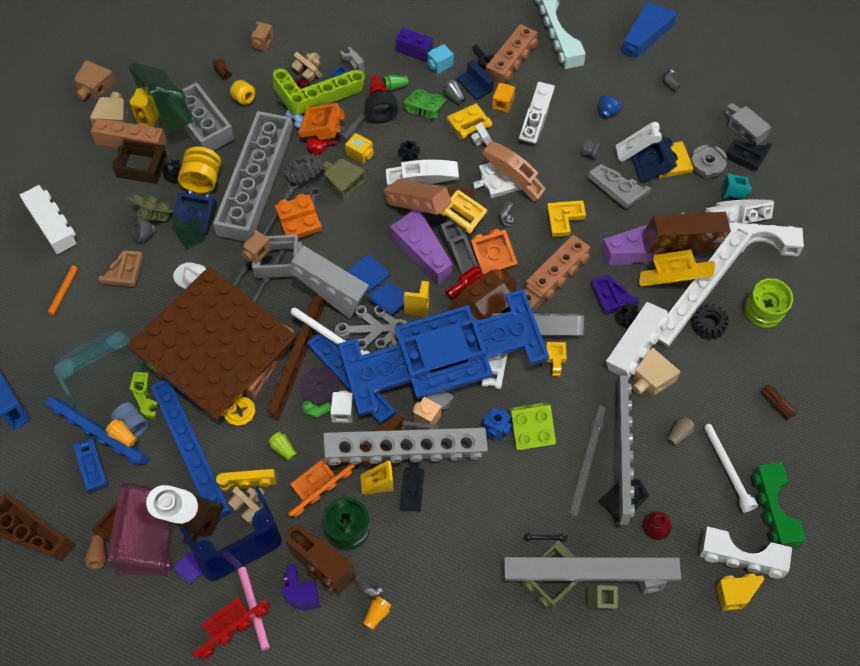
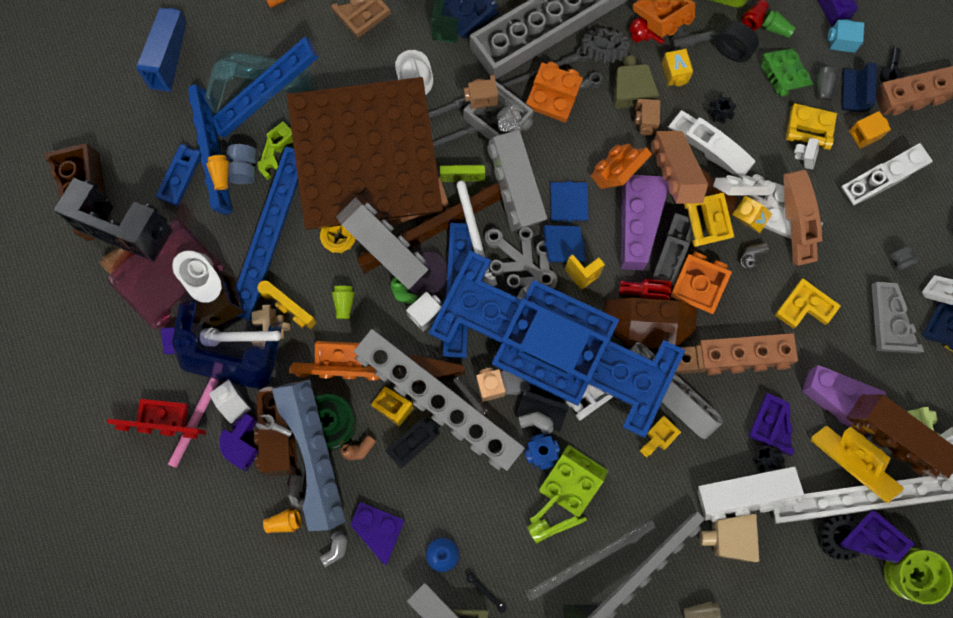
camera: 40 degrees right, 15 degrees up
(58, 529) = (87, 209): none -> black plate
(104, 357) = (265, 87): none -> blue plate
(217, 539) = (213, 336): none -> white piece
(267, 569) = (229, 401): none -> white brick
(277, 381) = (381, 243): none -> light grey wedge
(283, 310) = (464, 173): none -> lime tile
(288, 245) = (509, 118): none -> clear hinge
(313, 546) = (274, 426): none -> light grey hand
(368, 187) = (647, 116): none -> medium nougat brick
(380, 226) = (619, 165): none -> orange plate
(382, 527) = (357, 452): none -> nougat arm
(392, 572) = (299, 410): none -> sand blue arch
(429, 597) = (338, 549): none -> light grey arm
(442, 562) = (377, 530): none -> dark purple wing
(465, 178) = (745, 186): none -> white plate
(472, 401) = (535, 403): none -> black panel
(481, 405) = (539, 420): none -> light grey arm
(484, 191) = (752, 214): none -> yellow brick
(497, 540) = (442, 554): none -> blue brick
(542, 467) = (541, 530): none -> lime plant
(729, 301) = (878, 539): none -> dark purple wing

